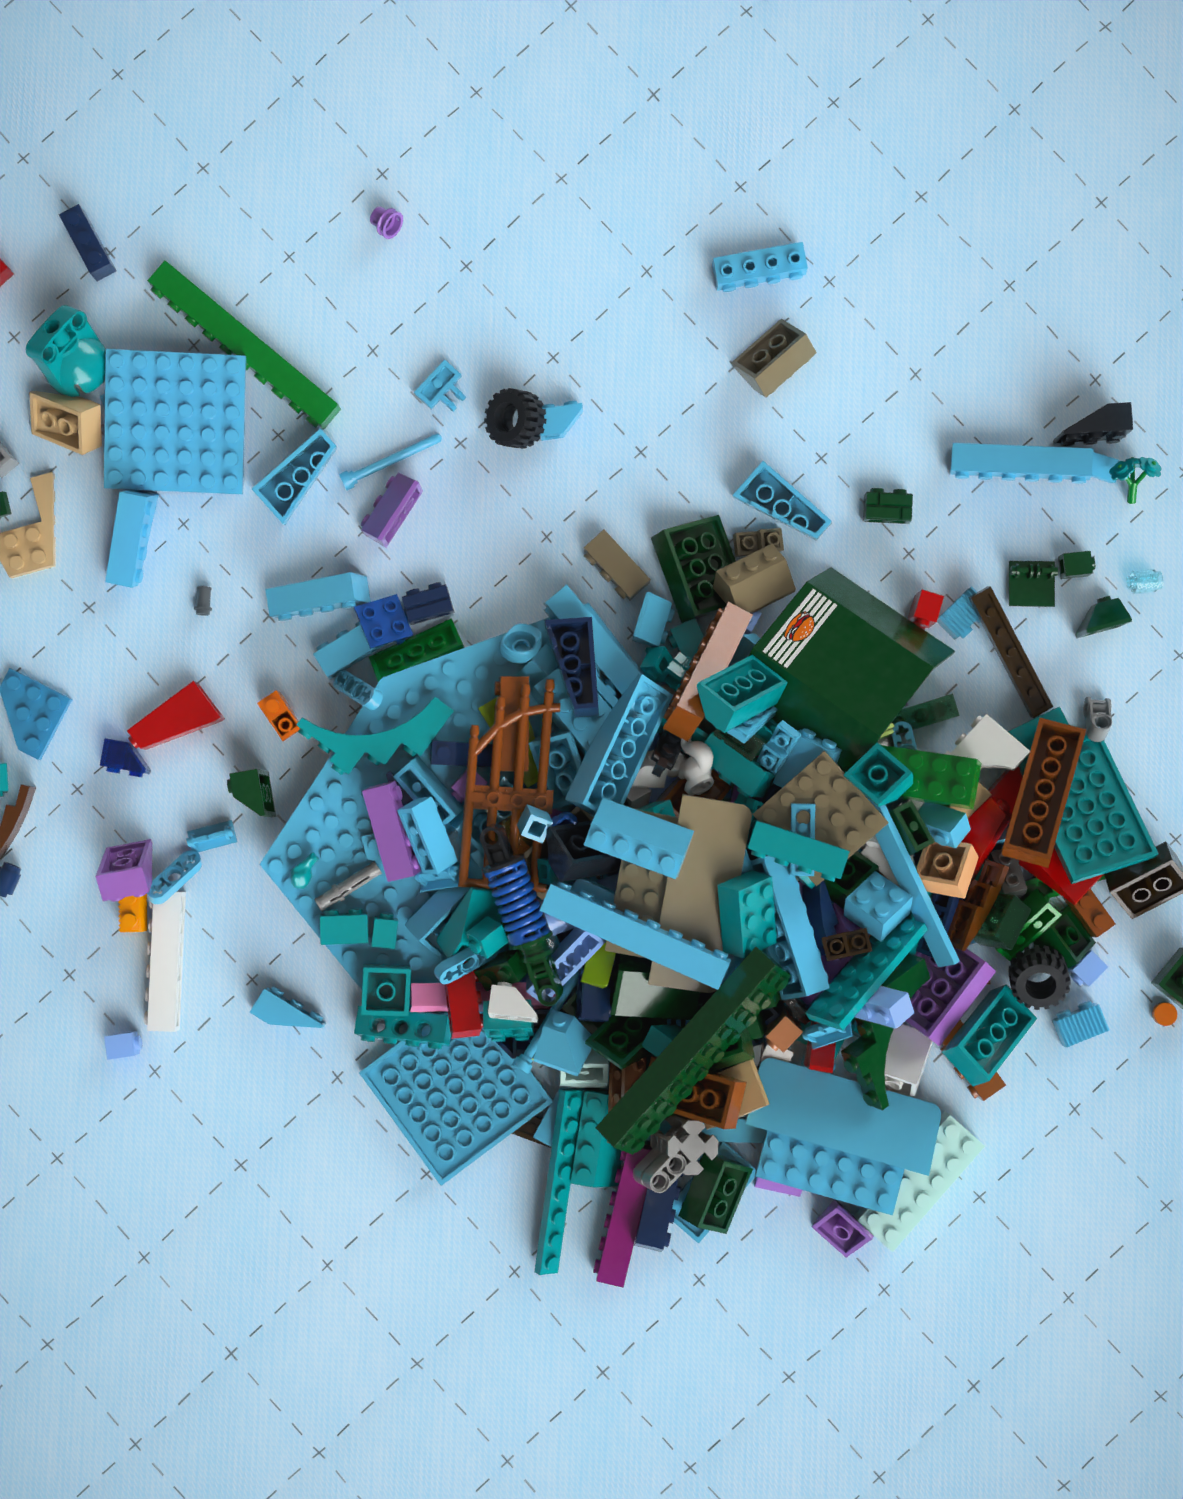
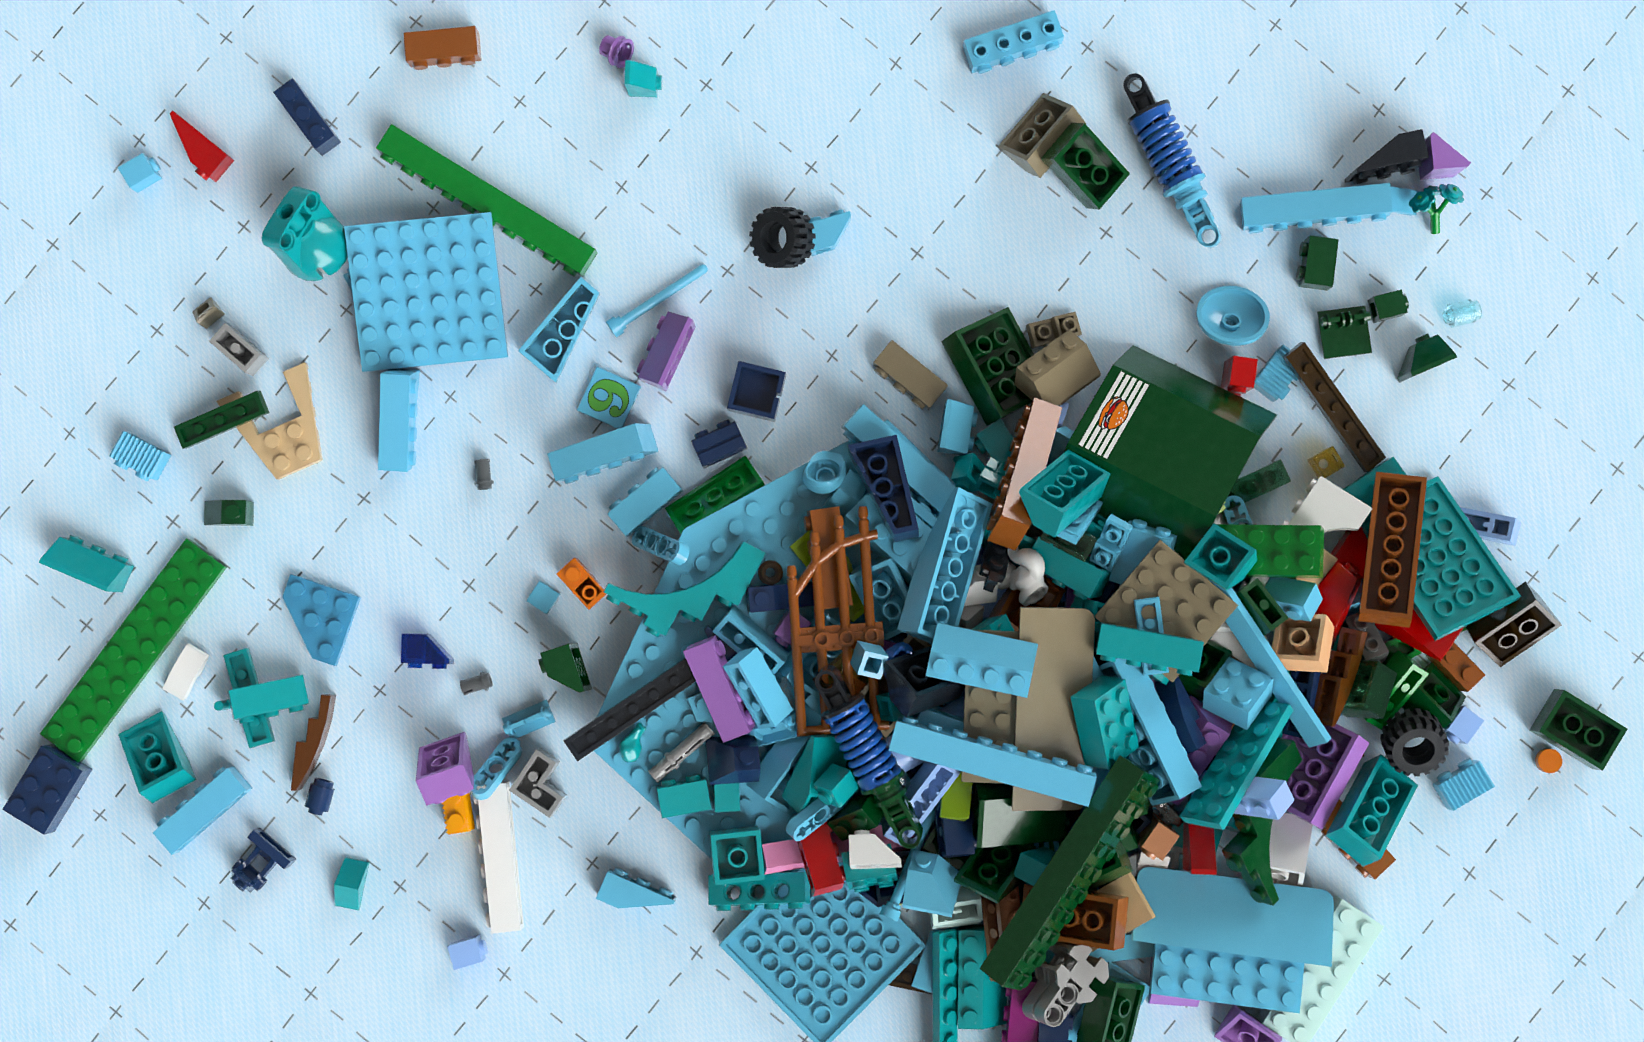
camera: 10 degrees left, 0 degrees up
(23, 965) = (350, 883): none -> teal slope
(66, 421) = (312, 307): tan slope -> none
(173, 794) = (476, 683): none -> dark grey pin
(178, 716) = (473, 600): red slope -> none
(207, 899) = (533, 785): none -> light grey brick
(223, 195) = (442, 47): none -> dark orange brick
(242, 724) = (543, 597): none -> medium azure tile
(305, 839) = (630, 710): none -> black plate
(331, 546) = (609, 398): none -> medium azure tile
(383, 621) = (676, 469): blue hinge -> none
(395, 900) = (733, 760): none -> dark blue slope
(405, 252) = (642, 80): none -> slope
(438, 384) = (695, 214): medium azure hinge -> none
(456, 722) = (770, 580): none -> dark brown plate
(470, 559) = (756, 391): none -> dark blue piece
(781, 501) = (1068, 282): medium azure wedge -> none
(809, 392) = (1085, 165): none -> dark green brick
(823, 1035) = (1201, 836): medium azure hinge -> none
(846, 944) = (1212, 738): dark brown slope -> none
(888, 507) = (1183, 273): dark green brick -> none
(891, 397) = (1170, 158): none -> piece
(928, 552) = (1233, 307): none -> medium azure dish
(1003, 703) = (1333, 464): none -> clear yellow piece
(1015, 514) = (1318, 262): none -> dark green brick
(1097, 718) = (1432, 459): light grey piece -> none
(1145, 786) = (1494, 526): none -> light blue slope
(1146, 434) = (1442, 160): none -> medium lavender slope

